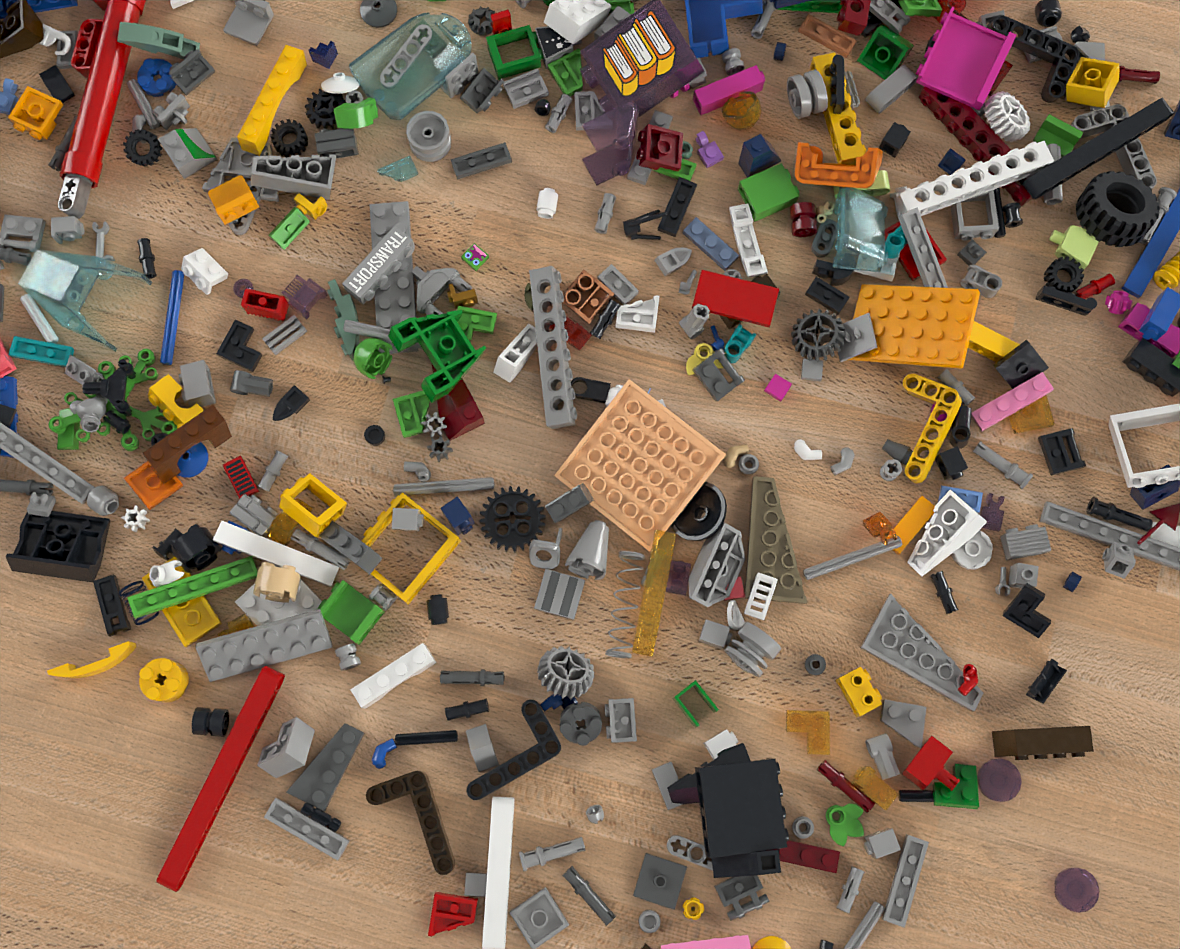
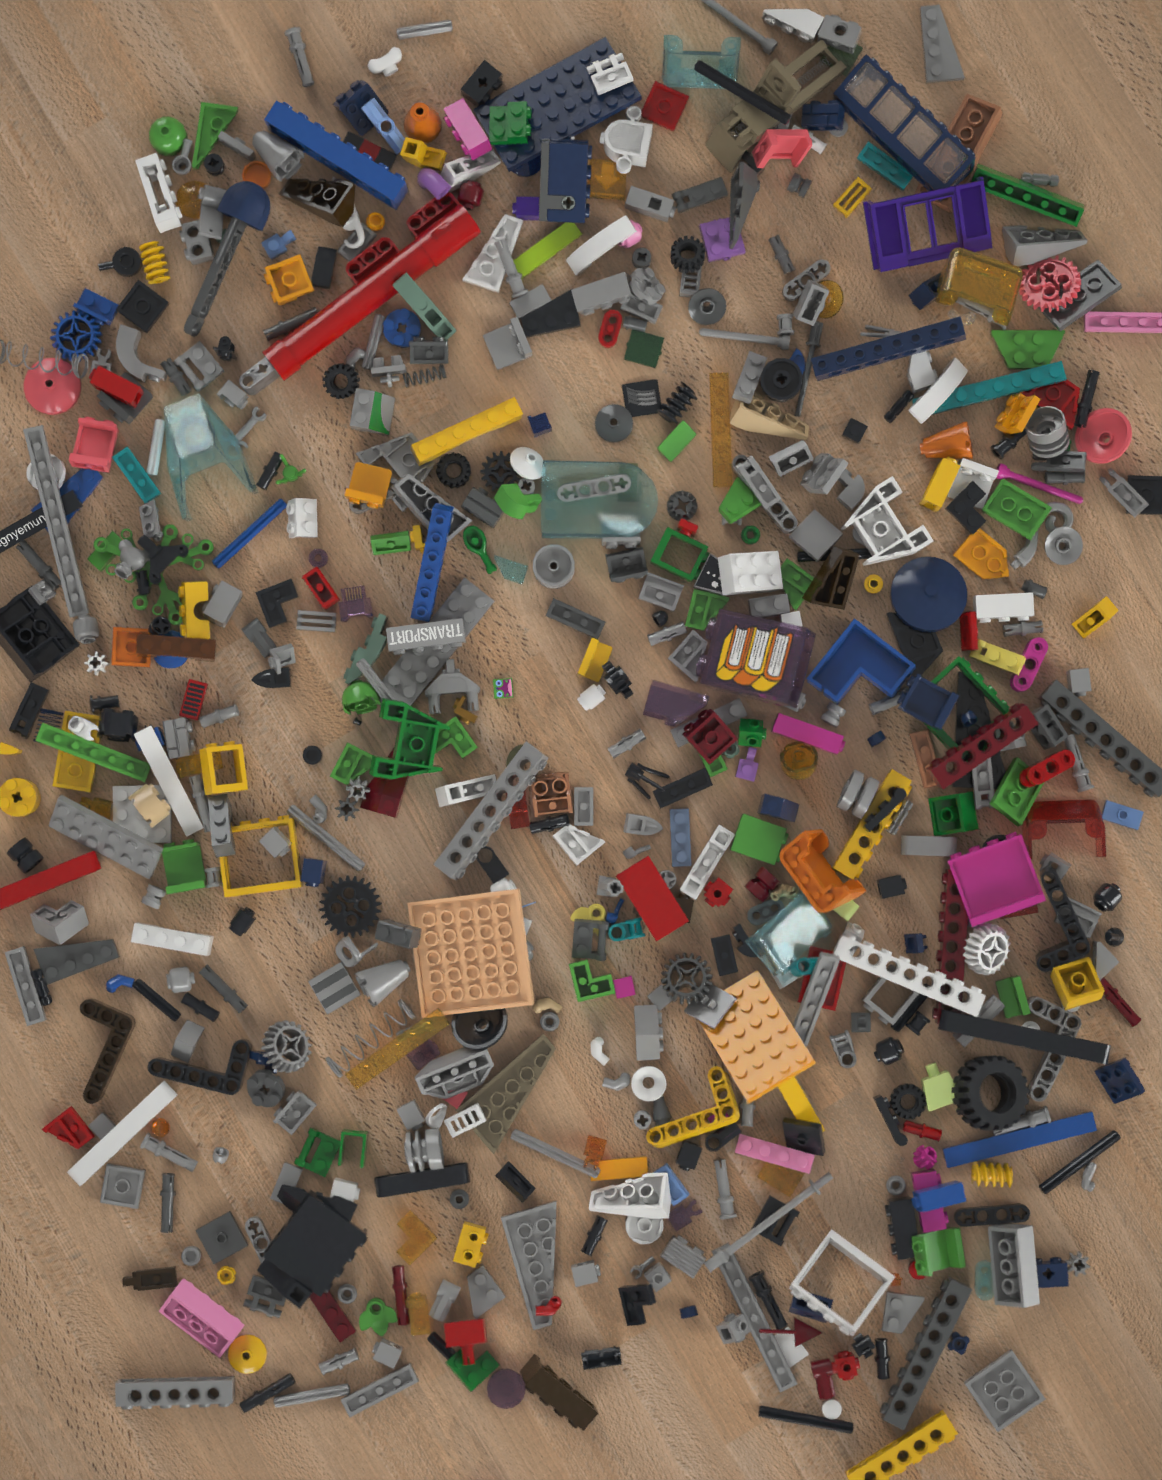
camera: 45 degrees right, 10 degrees up
(29, 199) = (225, 349): none -> black hinge
(67, 22) = (375, 221): none -> light orange plate
(164, 246) = (289, 472): none -> bright green plant
(216, 80) = (441, 370): none -> dark grey piece
(281, 381) = (281, 657): none -> light grey bracket
(332, 205) = (432, 562): none -> blue brick
(354, 172) = (476, 542): none -> green piece
(430, 702) = (180, 979): none -> light grey head
(523, 177) = (595, 656): none -> yellow panel
(525, 838) = (160, 1127): none -> clear orange plate
(554, 170) = (617, 680): none -> black gear
(677, 734) = (324, 1154): none -> green plate
(688, 122) = (751, 732): none -> green brick
(749, 408) = (586, 986): none -> bright green brick
(772, 678) = (420, 1181): none -> black beam
(777, 254) = (724, 889): none -> red brick
(831, 400) = (648, 1032): none -> light grey brick
(844, 609) = (515, 1182): none -> black plate
(874, 431) = (648, 1094): none -> white piece
(967, 627) = (585, 1273): none -> light grey brick
(1013, 252) = (889, 1051): none -> black head
(1054, 512) = (724, 1254): none -> light grey bar
(1122, 340) = (902, 1185): none -> light grey plate

